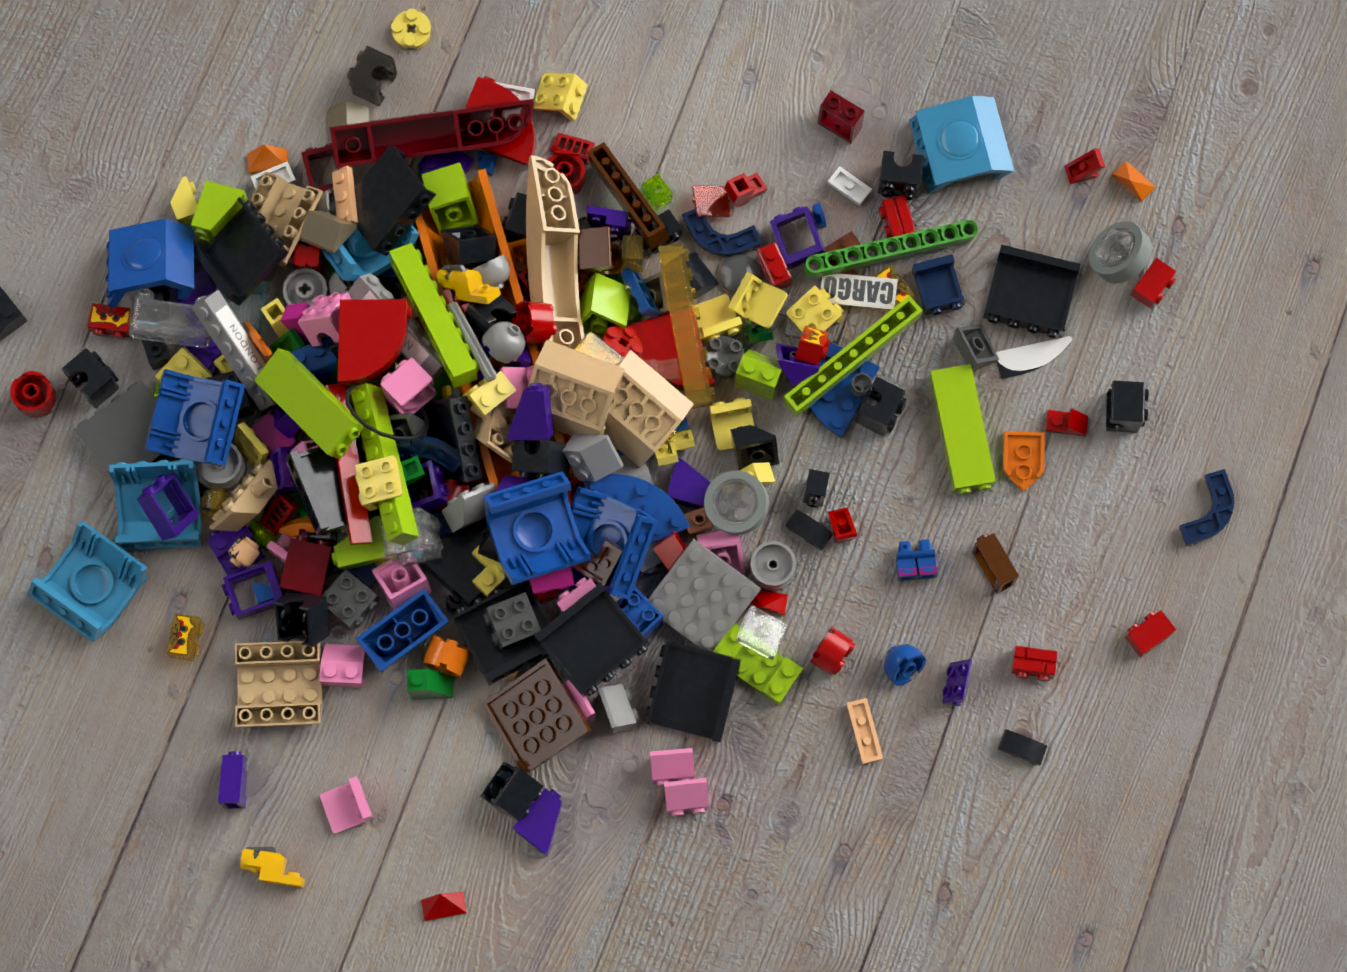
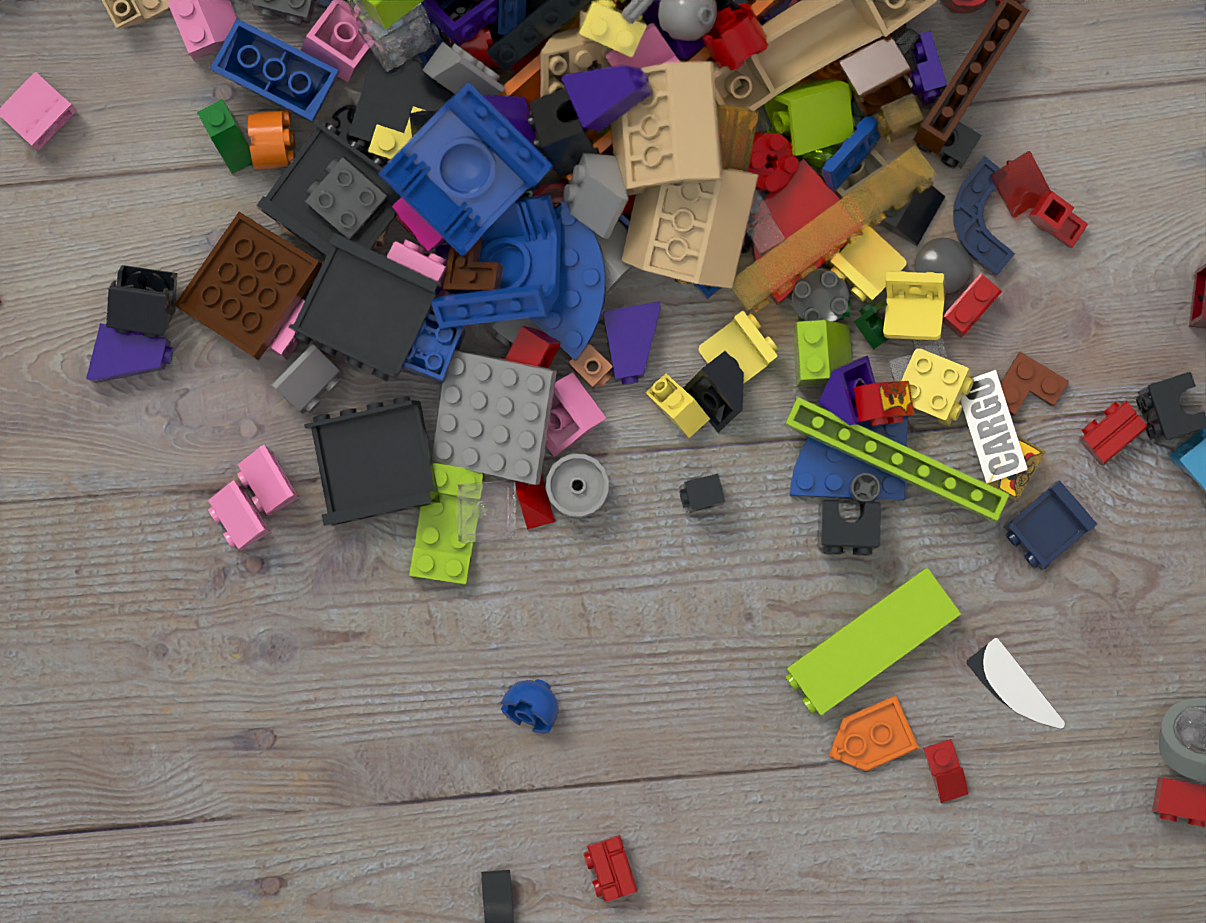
camera: 65 degrees right, 10 degrees up
(657, 199) = (992, 120): clear neon green brick -> none
(667, 451) = (658, 286): light yellow plate -> none
(736, 502) = (632, 402): wheel -> none
(800, 257) = (1004, 337): dark purple window -> none
(809, 529) = (649, 509): black slope -> none
(818, 214) = (1068, 330): blue tile -> none
(831, 651) = (503, 611): red brick -> none
(842, 525) = (673, 547): red slope -> none
(849, 186) = (1128, 350): white plate -> none
(864, 731) = (425, 696): light nougat plate -> none
(884, 255) = (1078, 449): bright green beam -> none
(924, 559) = (680, 671): blue hips -> none
(957, 682) = (539, 783): dark purple hinge -> none
(975, 346) = (990, 609): dark grey slope -> none
(995, 562) = (714, 761): reddish brown window -> none
(1031, 291) = (1098, 648): black panel -> none
(1126, 406) = (1000, 838): black piece -> none

